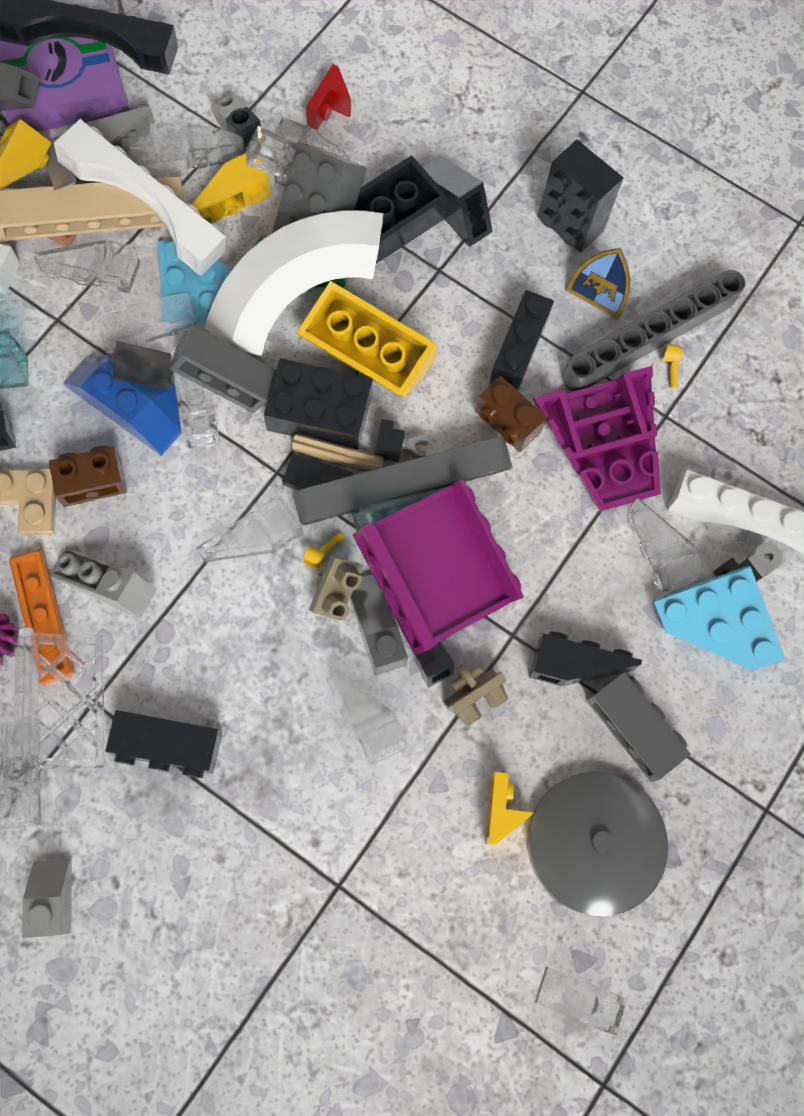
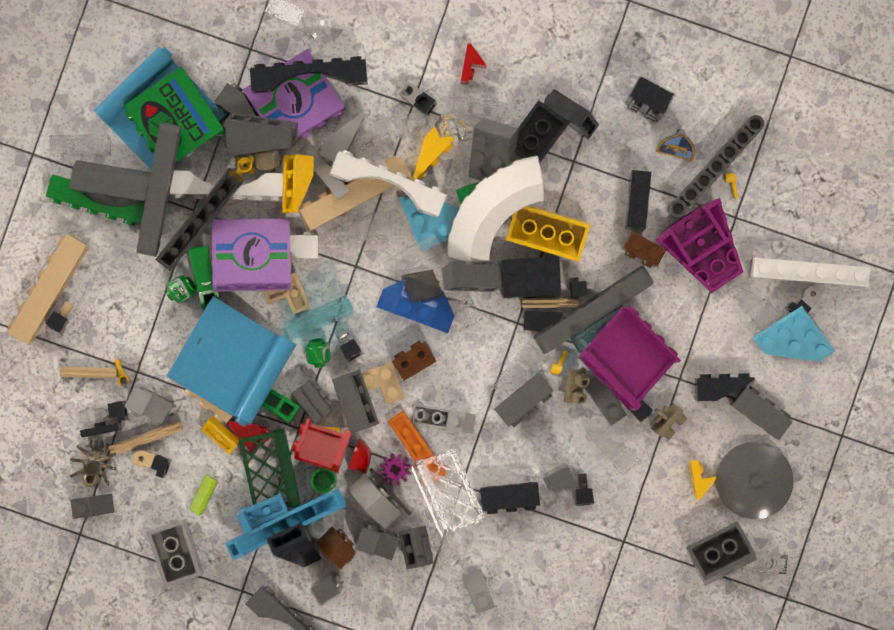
camera: 10 degrees left, 15 degrees up
(243, 589) = (524, 400): none -> dark grey brick
(254, 729) = (559, 478): none -> dark grey brick
(294, 777) = (584, 495): none -> black piece
(507, 958) = (721, 553): none -> dark grey brick

